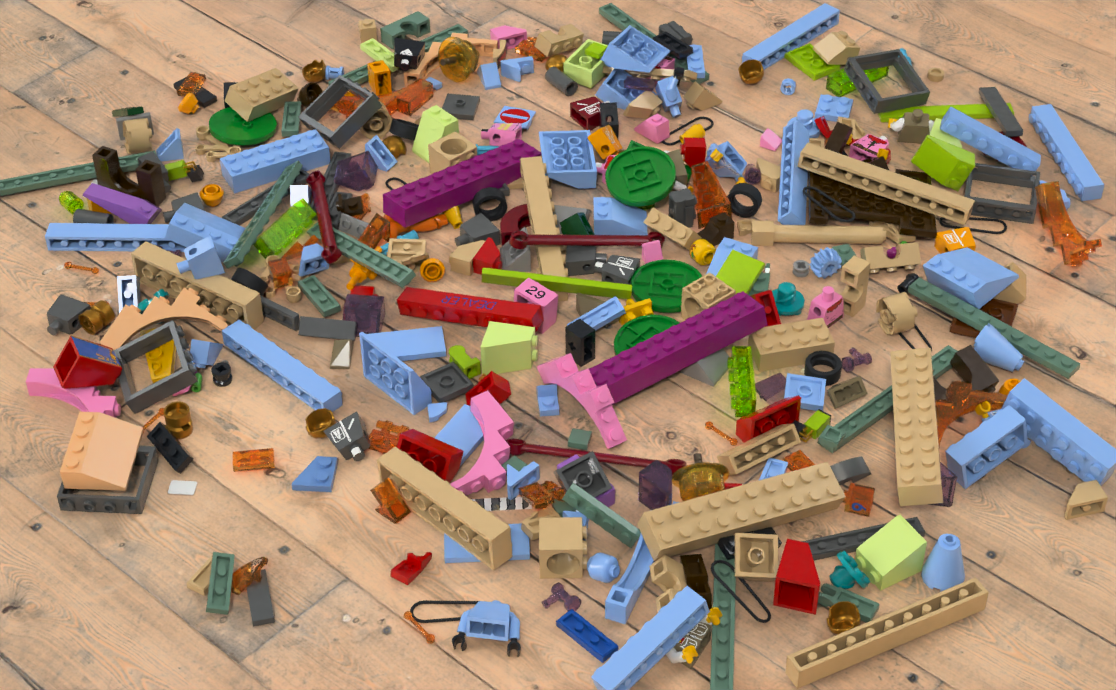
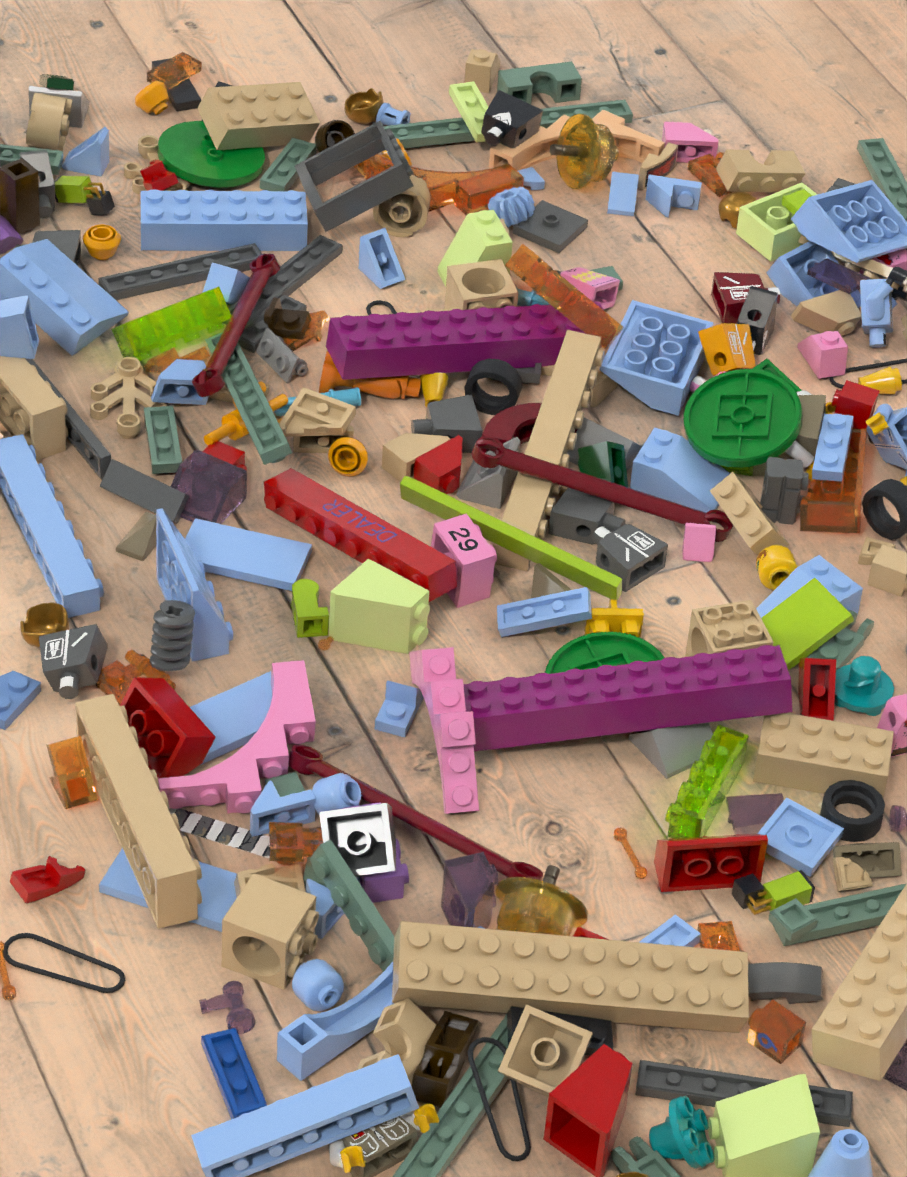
camera: 20 degrees right, 0 degrees up
(222, 149) = (157, 177): none -> red slope
(249, 280) = (70, 386): black tyre -> none
(262, 215) = (144, 296): sand green plate -> none
(280, 273) = (124, 386): clear orange brick -> none
(356, 172) = (330, 275): clear purple slope -> none
(376, 230) = (299, 371): clear orange slope -> none
(379, 73) = (449, 139): light orange torso -> none
(395, 145) = (412, 254): pearl gold hair -> none
(404, 129) = (436, 231): black tyre -> none
(404, 403) = (172, 636): none -> dark grey piece
(436, 97) = (512, 205): none -> light blue gear
(436, 410) = (225, 666): light blue tile -> none
(447, 382) = (265, 630): dark grey plate -> none
(489, 621) = (99, 1000): light blue torso -> none
(495, 384) = (325, 663): red slope -> none
(502, 139) = (564, 295): none -> clear orange arch
(515, 115) = (622, 266): piece -> none
(548, 459) = (336, 793): none -> light blue head
(561, 81) = (727, 235): dark grey pin -> none
(579, 439) = (409, 783): sand green tile -> none
(580, 342) = (494, 639): black brick -> none
(663, 283) = (678, 584): green plate -> none
(697, 176) = (832, 447): none -> light blue plate
(718, 228) = (825, 538): dark brown arch -> none
(759, 448) = (666, 896): tan brick -> none
(843, 403) = (850, 875): none -> tan tile

